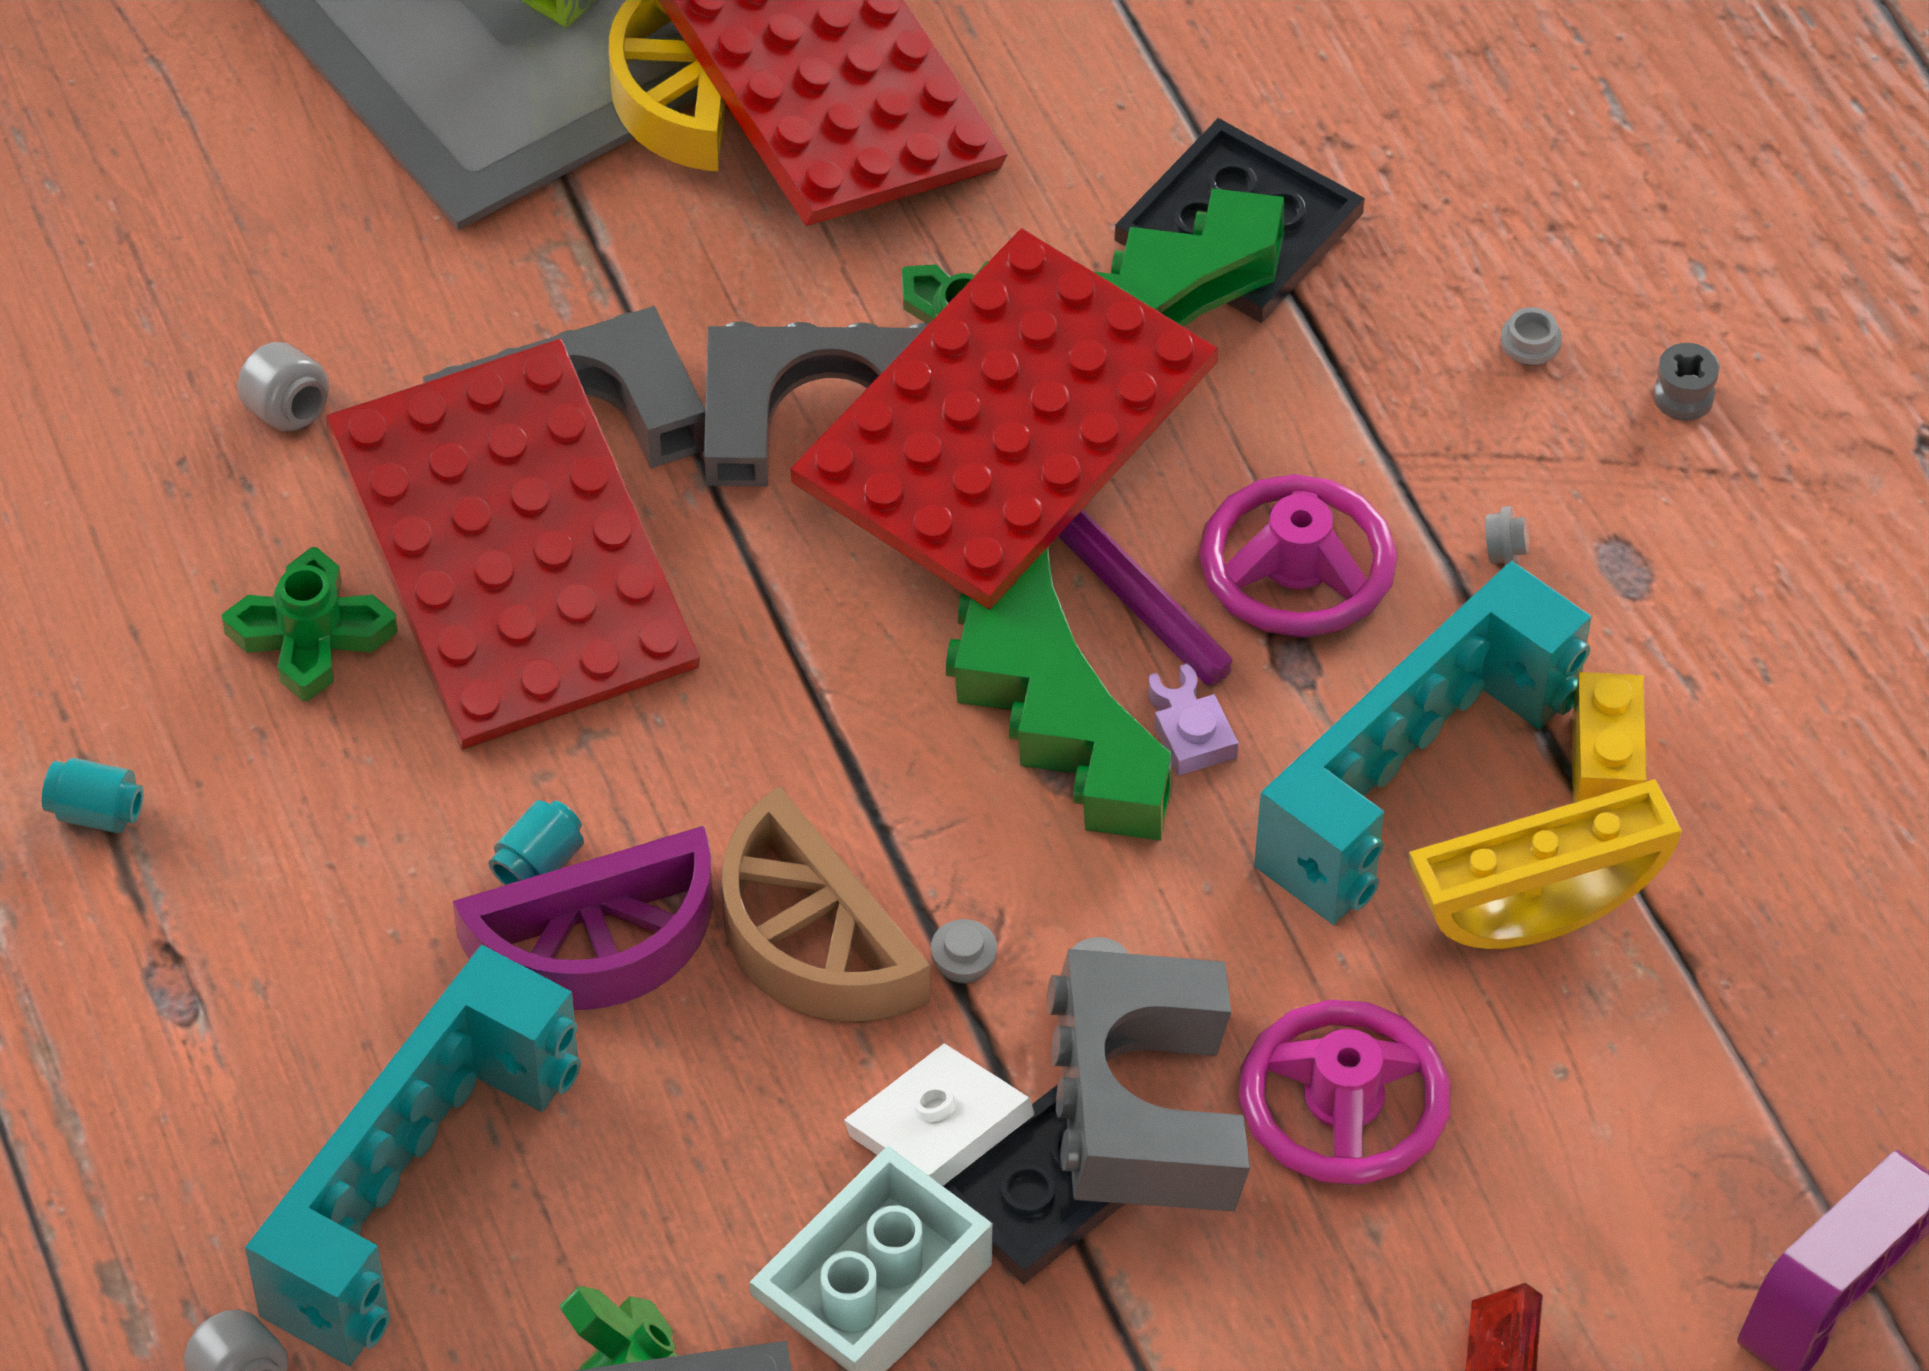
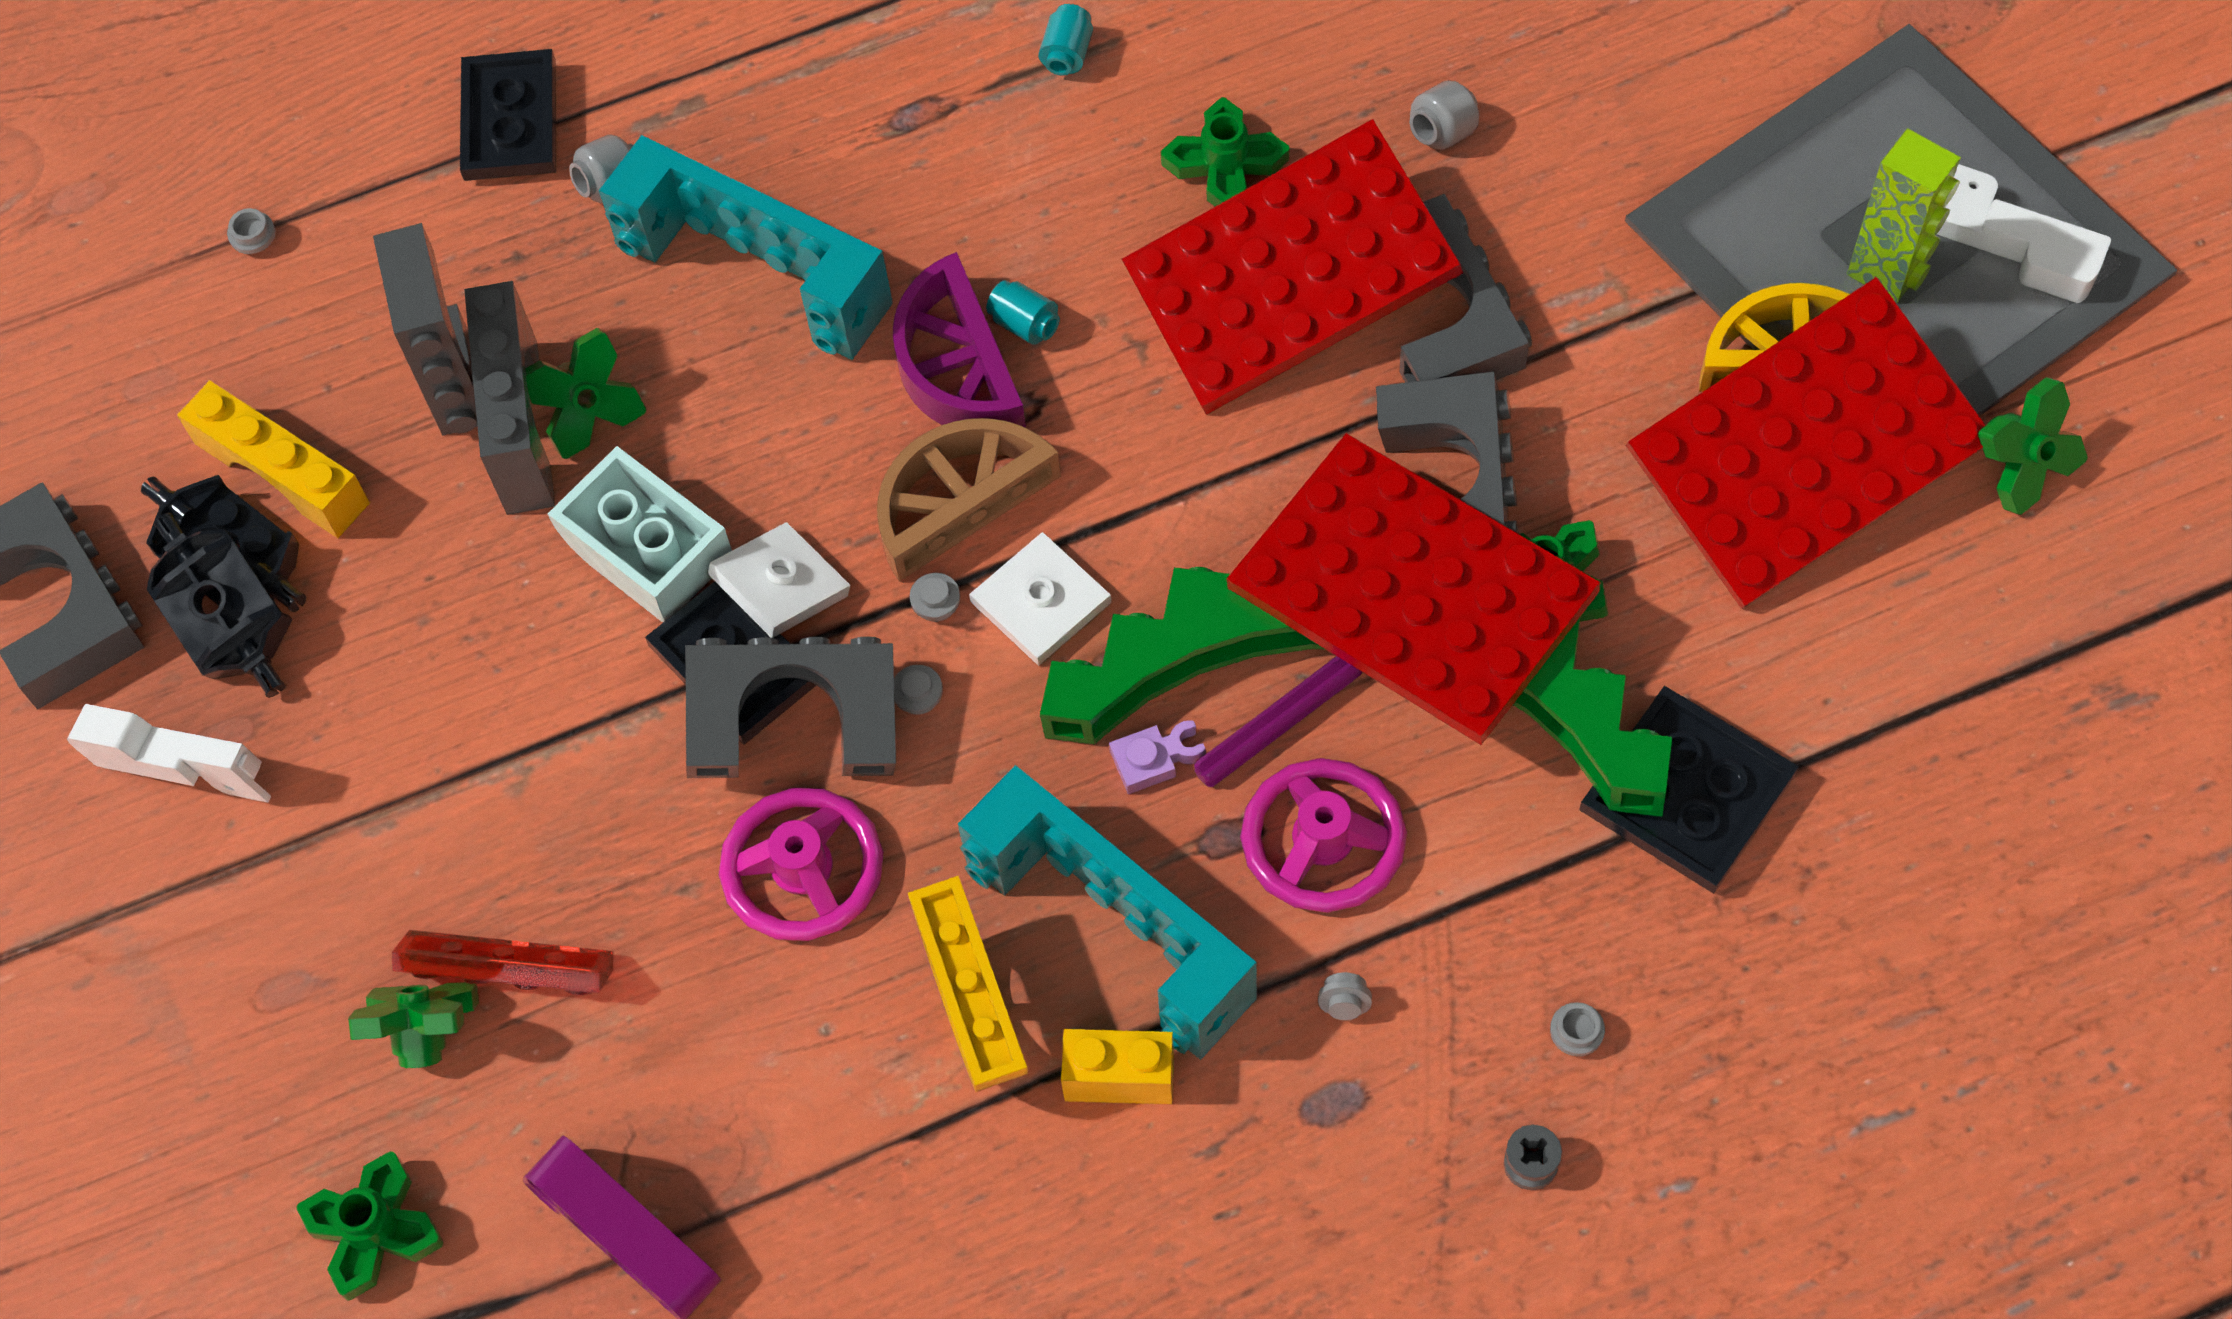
camera: 95 degrees right, 10 degrees up
(967, 838) = (1040, 598): none -> white plate

